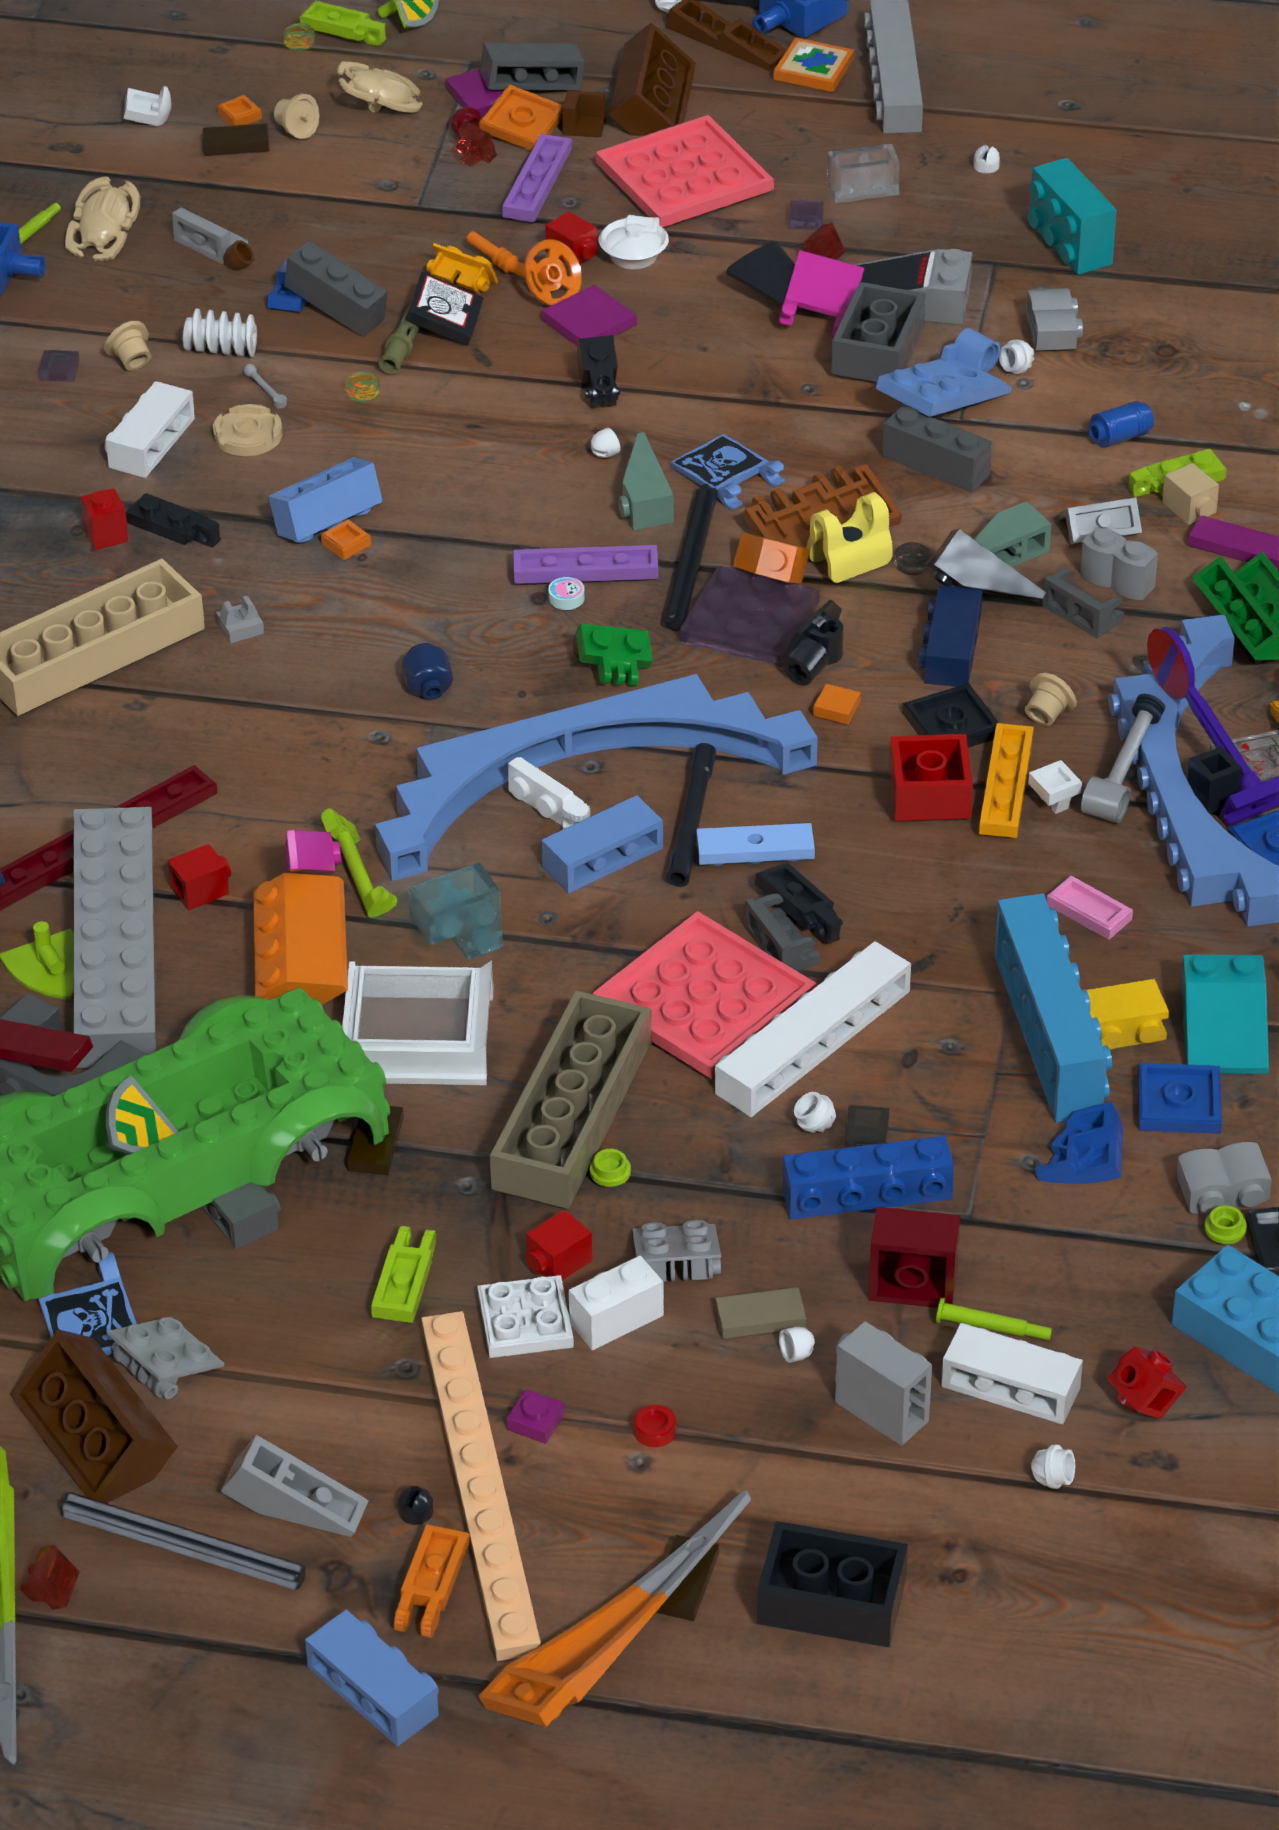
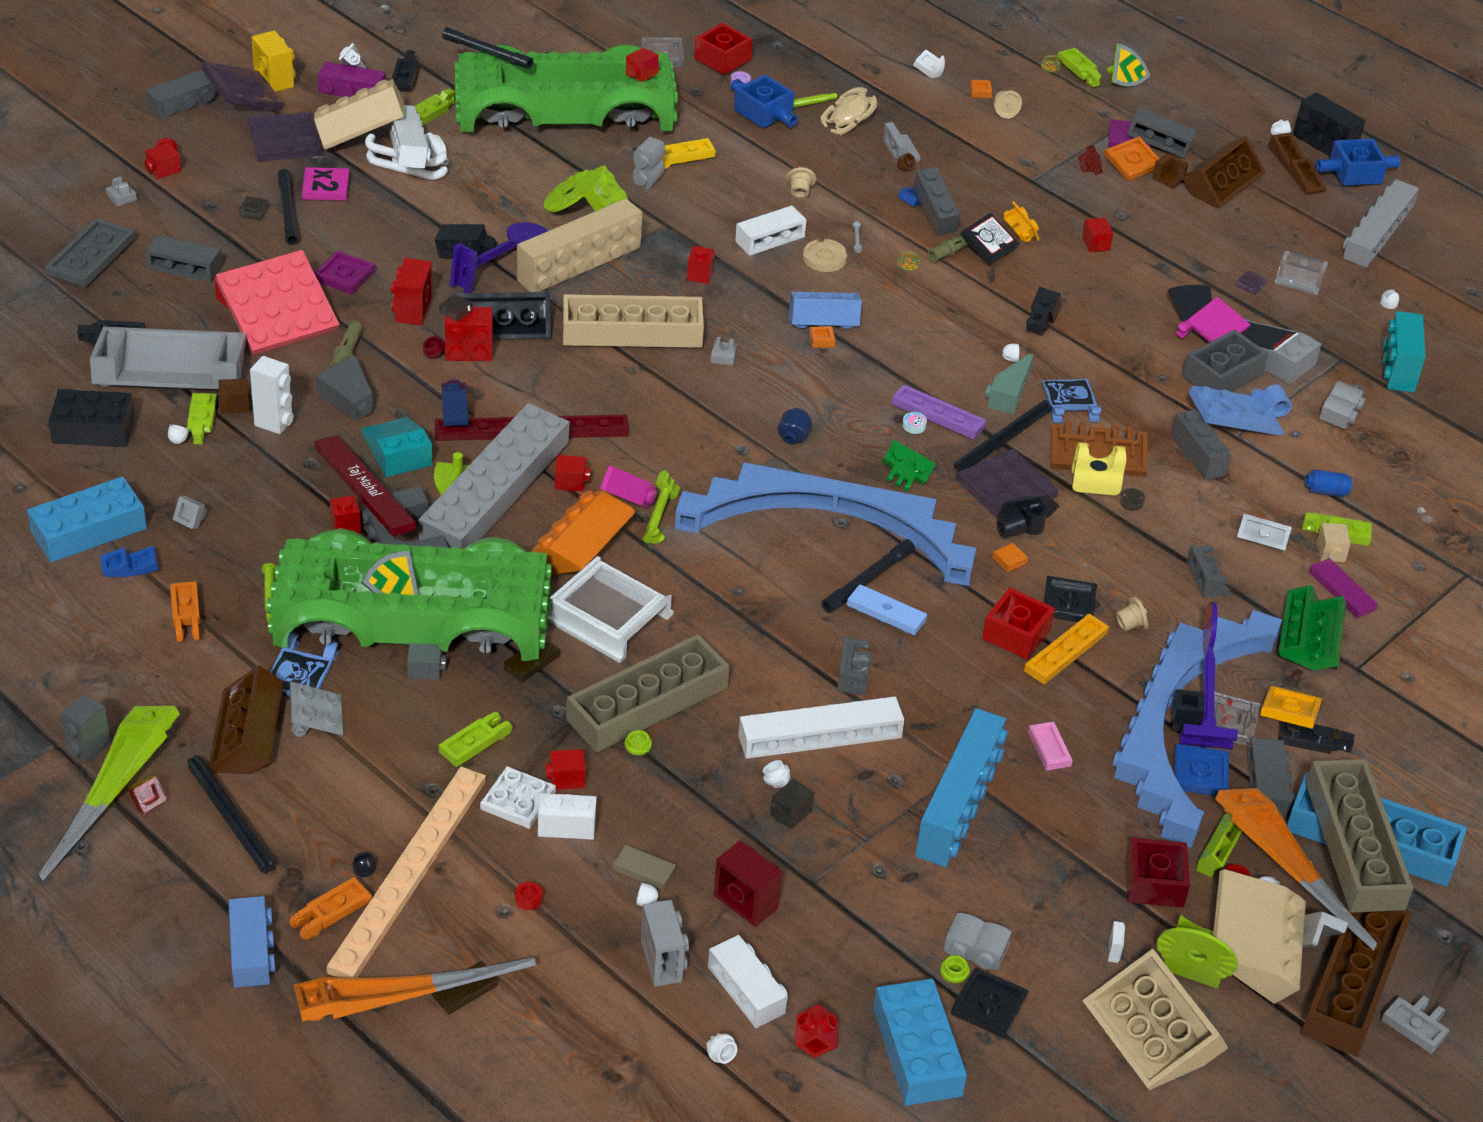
camera: 30 degrees right, 0 degrees up
(59, 365) = (757, 176): clear purple tile -> none
(172, 521) = (738, 283): black hinge -> none
(220, 333) = (854, 197): white piece -> none
(235, 139) = (964, 102): dark brown tile -> none
(291, 1490) = (305, 819): light grey slope -> none
(379, 87) = (1068, 108): tan shield -> none
(460, 907) = (680, 555): clear light blue brick -> none
(462, 115) = (1099, 141): dark red plate -> none
(535, 1416) = (471, 853): magenta plate -> none
(537, 178) = (1111, 193): medium lavender plate -> none
(545, 794) = (795, 527): white hinge -> none
(546, 274) = (1063, 244): orange dish -> none
(589, 315) = (1071, 281): magenta tile -> none
(602, 844) = (801, 566): medium blue brick -> none
(634, 241) = (1133, 251): white piece -> none
(684, 171) = (1200, 227): coral plate -> none
(692, 1242) = (629, 806): light grey hinge -> none
(706, 991) = (779, 673): coral plate -> none
(771, 558) = (1045, 459): orange slope -> none
(801, 901) = (882, 653): black hinge -> none
(814, 64) = (1334, 202): tile -> none
(825, 242) = (1242, 302): clear red tile -> none
(832, 1584) = (530, 1038): black brick -> none
(868, 1177) = (770, 825): blue brick -> none
(951, 636) = (1110, 552): dark blue brick -> none
(970, 565) = (1151, 517): slope -> none
(990, 1321) = (759, 938): lime piece -> none
(1016, 356) = (1300, 416): white plate -> none
(1017, 534) = (1190, 515): sand green slope -> none
(1055, 785) = (1090, 665): white tile -> none
(1087, 1148) = (917, 880): blue slope -> none
(1107, 796) = (1116, 688): light grey piece -> none
(1118, 564) = (1249, 560): light grey brick -> none
(1129, 1013) = (1006, 816): yellow brick -> none
(1179, 1098) = (999, 882): blue tile -> none
(1225, 1012) = (1068, 848): teal slope -> none

